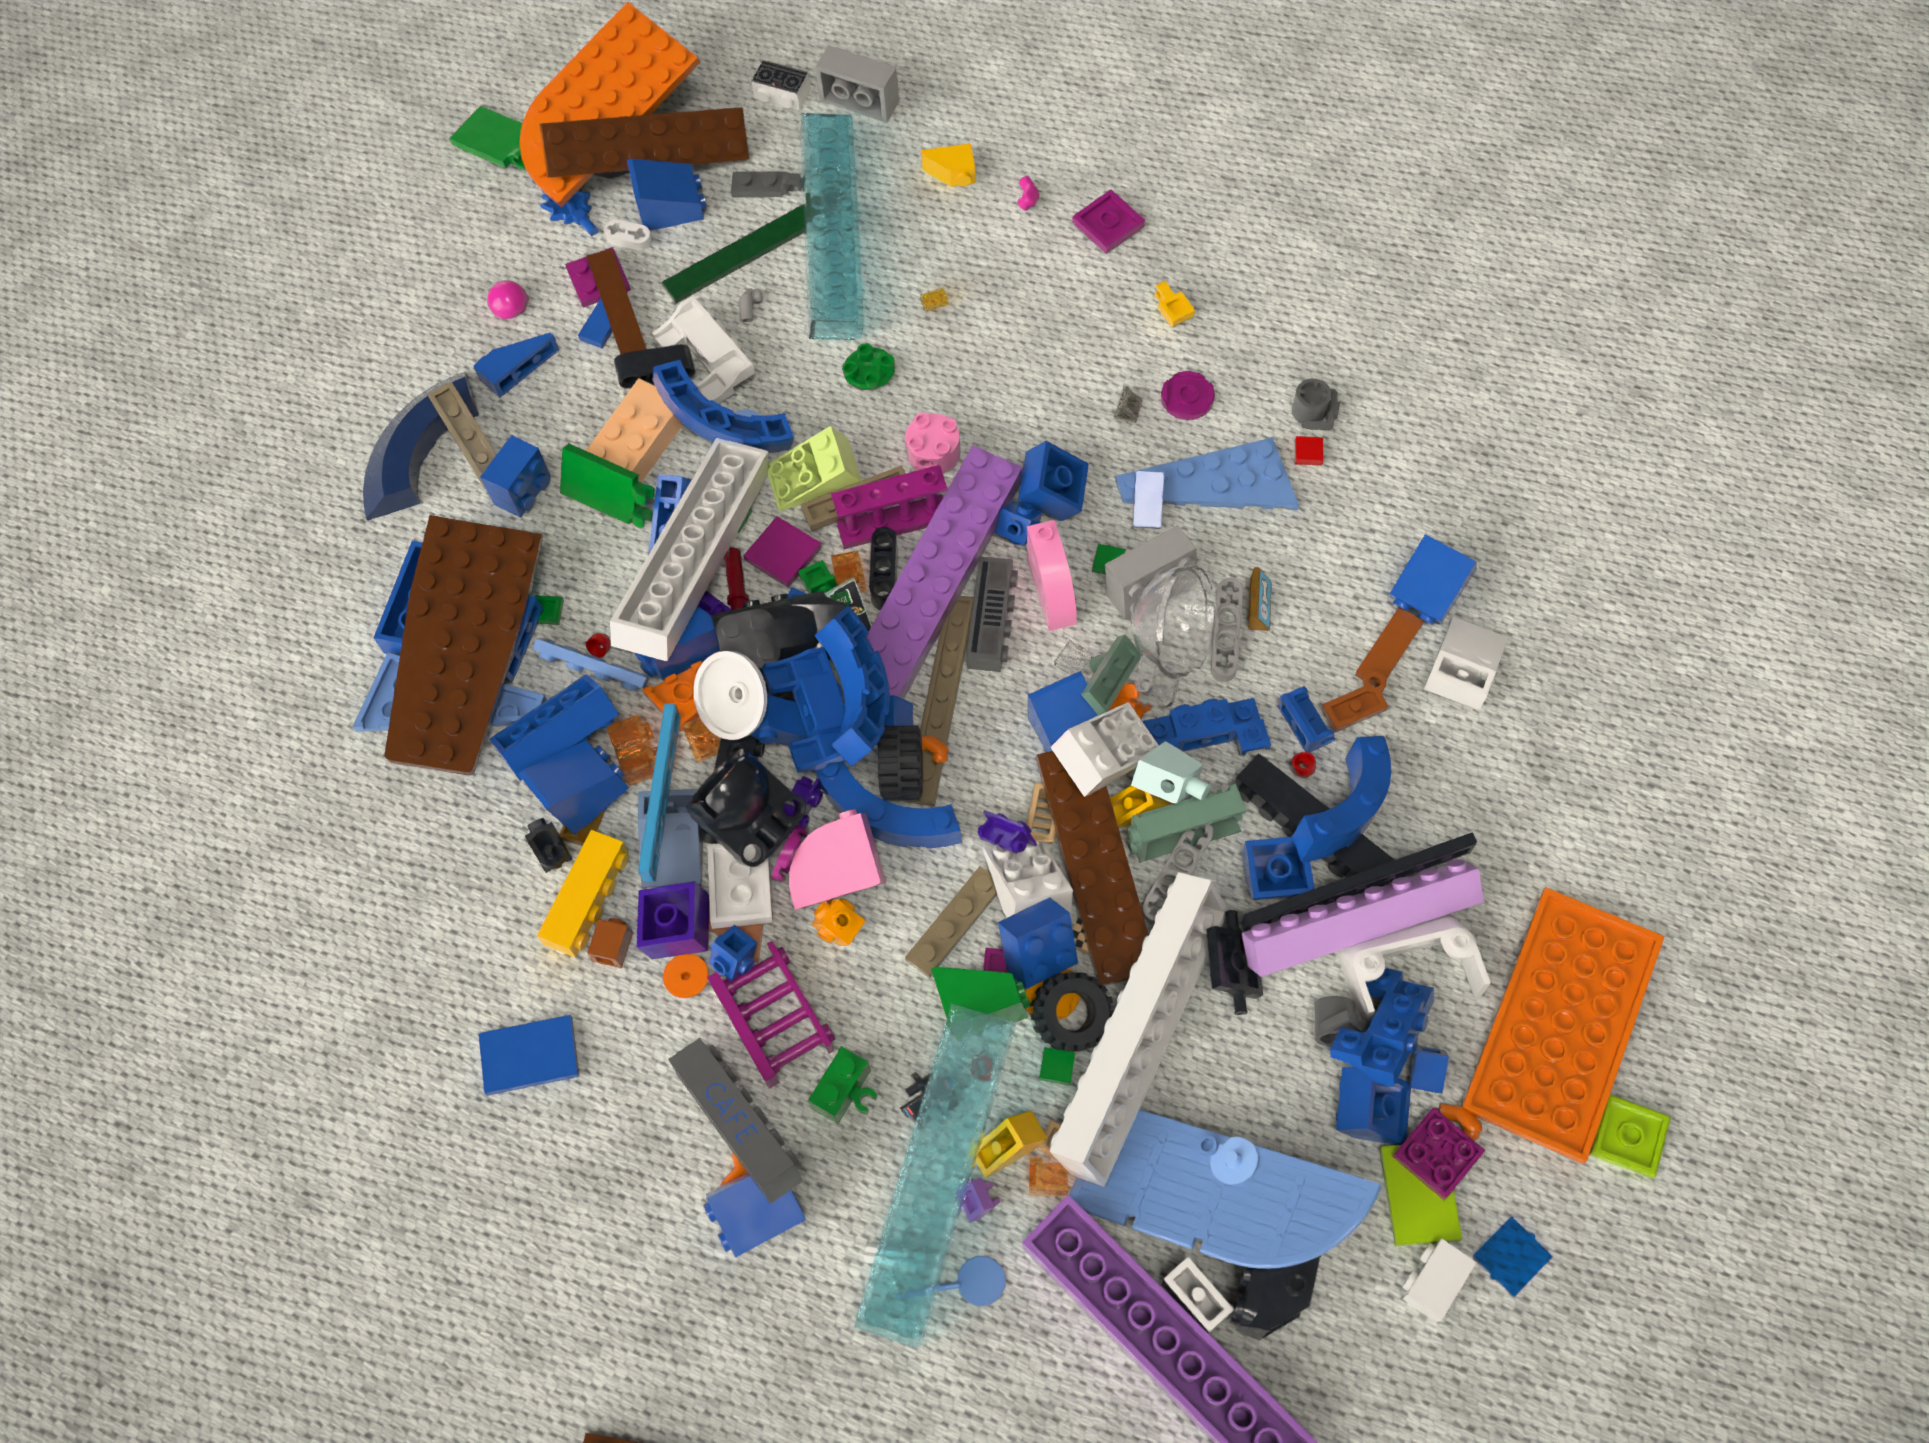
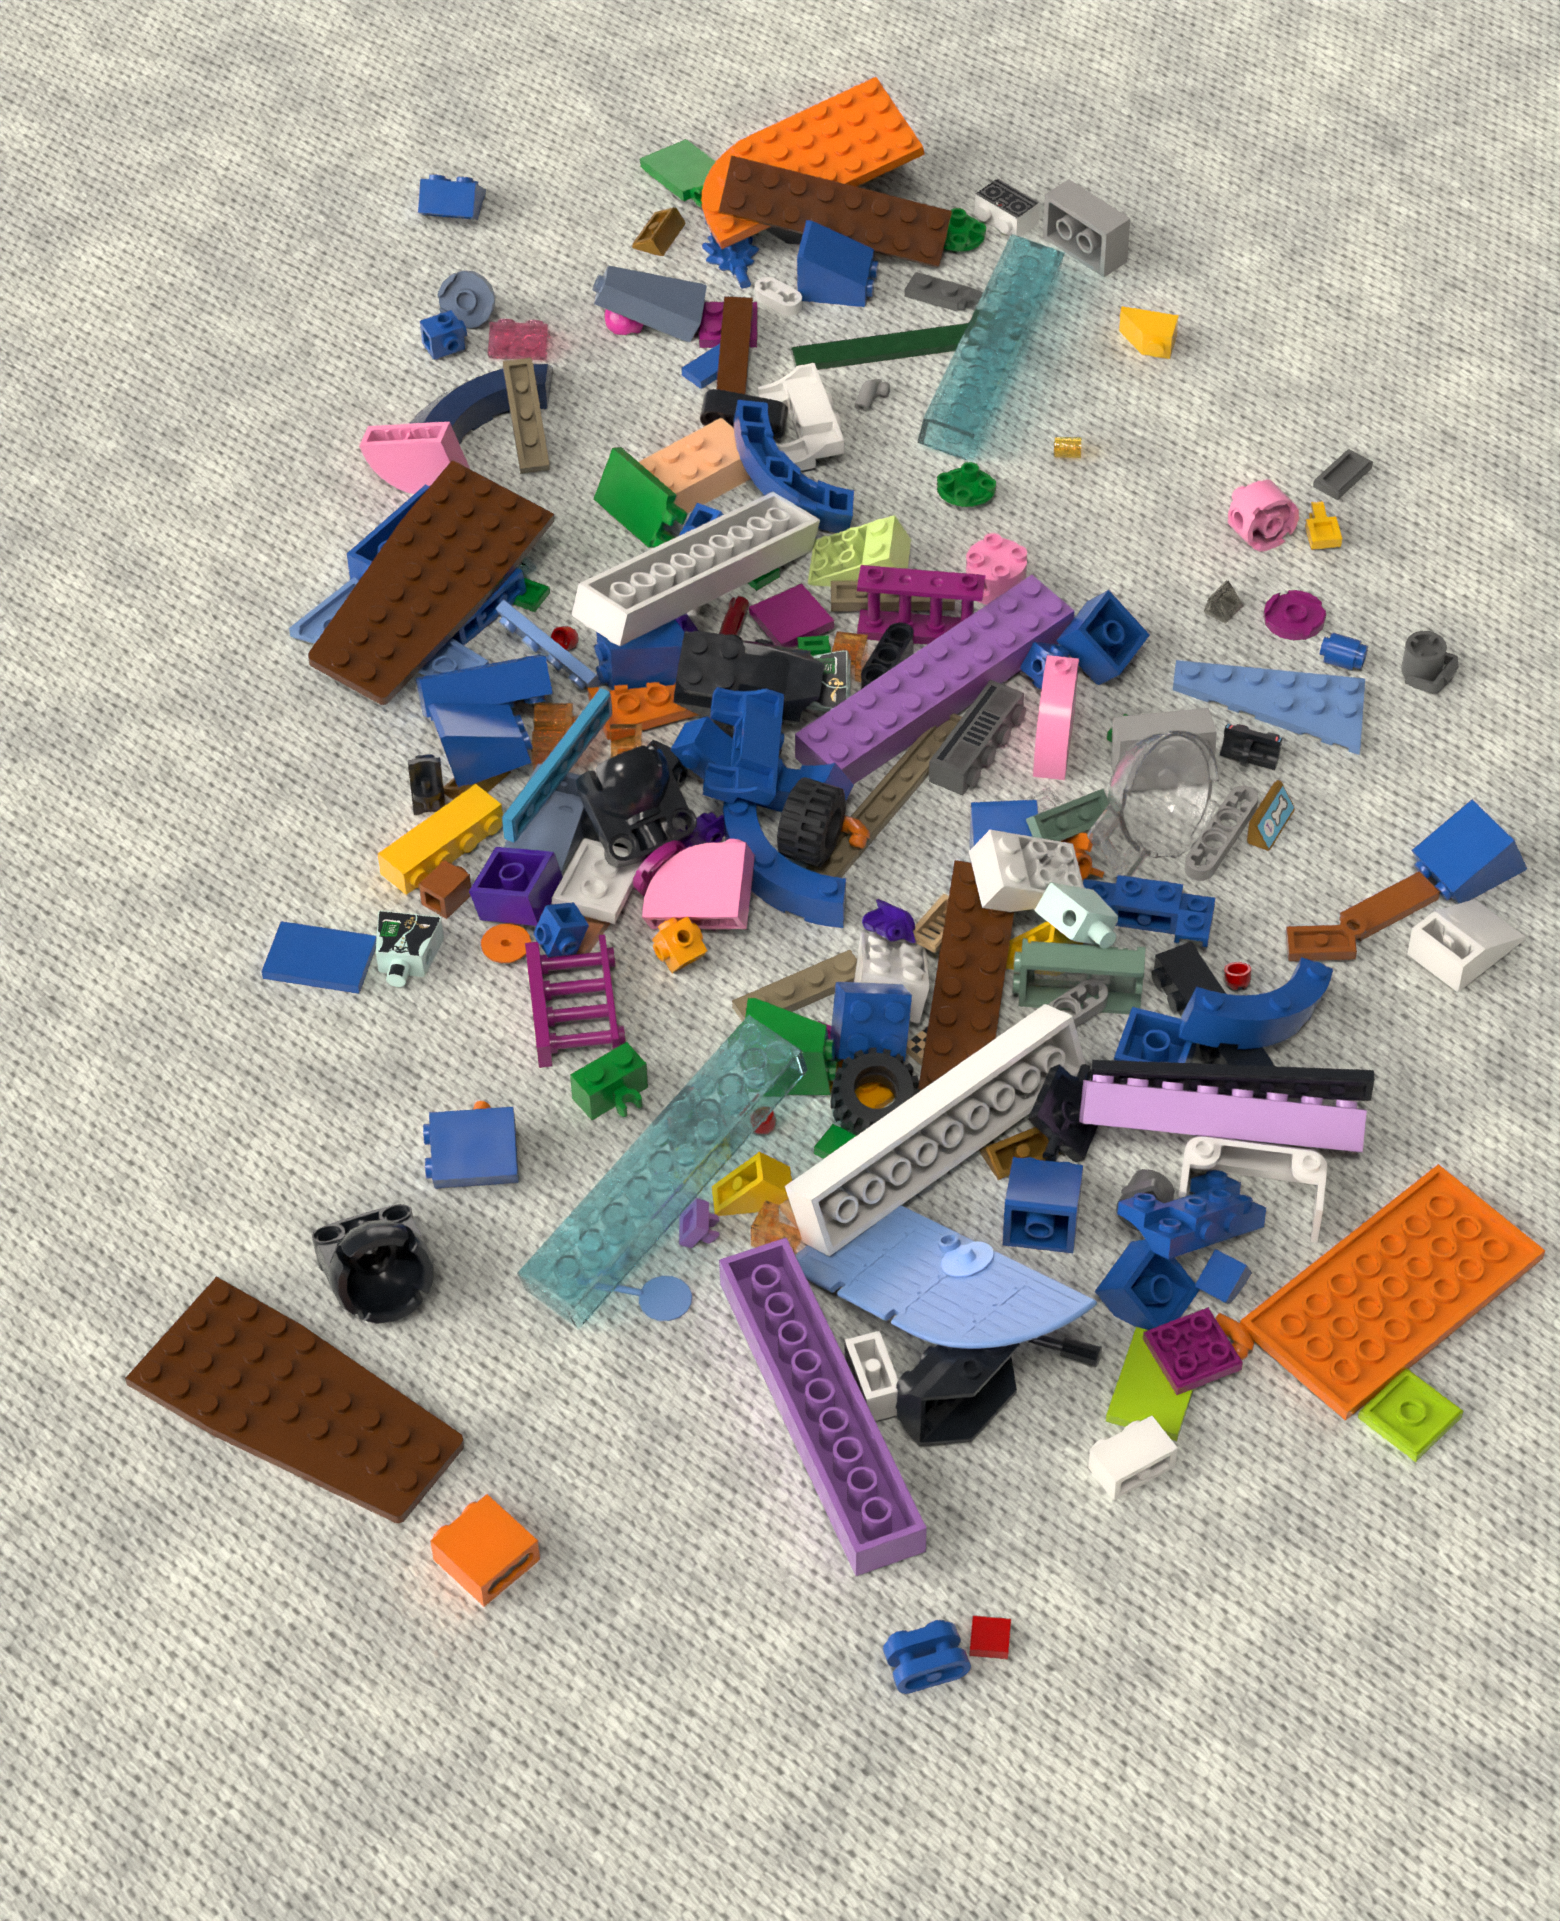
camera: 20 degrees right, 15 degrees down
(302, 235) = (450, 198): none -> blue slope
(357, 376) = (443, 334): none -> blue brick
(362, 334) = (468, 297): none -> sand blue tile
(389, 513) = (411, 453): none -> bright pink brick
(424, 357) = (518, 340): none -> clear pink bracket
(498, 205) = (660, 232): none -> pearl gold slope
(512, 363) = (605, 371): blue slope -> none
(516, 476) = (555, 465): blue brick -> none
(527, 280) = (652, 300): none -> sand blue slope
(601, 1016) = (406, 944): none -> torso
(720, 696) = (669, 703): white dish -> none
(722, 1365) = (376, 1263): none -> black piece
(736, 1120) = (492, 1061): dark grey brick -> none
(757, 118) = (964, 232): none -> green dish
(862, 681) = (808, 730): blue brick -> none
(1030, 194) = (1221, 384): dark pink arm -> none
(1108, 221) = (1293, 432): magenta plate -> none
(1124, 312) = (1262, 514): none -> bright pink brick
(1148, 499) = (1199, 685): tile -> none
(1164, 246) = (1342, 474): none -> dark grey tile
(1205, 1011) = (1022, 1145): none -> pearl gold slope
(1215, 537) = (1251, 746): none -> black hips
(1245, 418) = (1343, 651): none -> blue brick
(1255, 1057) = (1042, 1205): none -> blue slope
(1305, 720) = (1261, 936): blue hinge -> none
(1309, 450) = (1399, 704): red tile -> none
(1512, 1256) = (1225, 1472): clear blue piece -> none

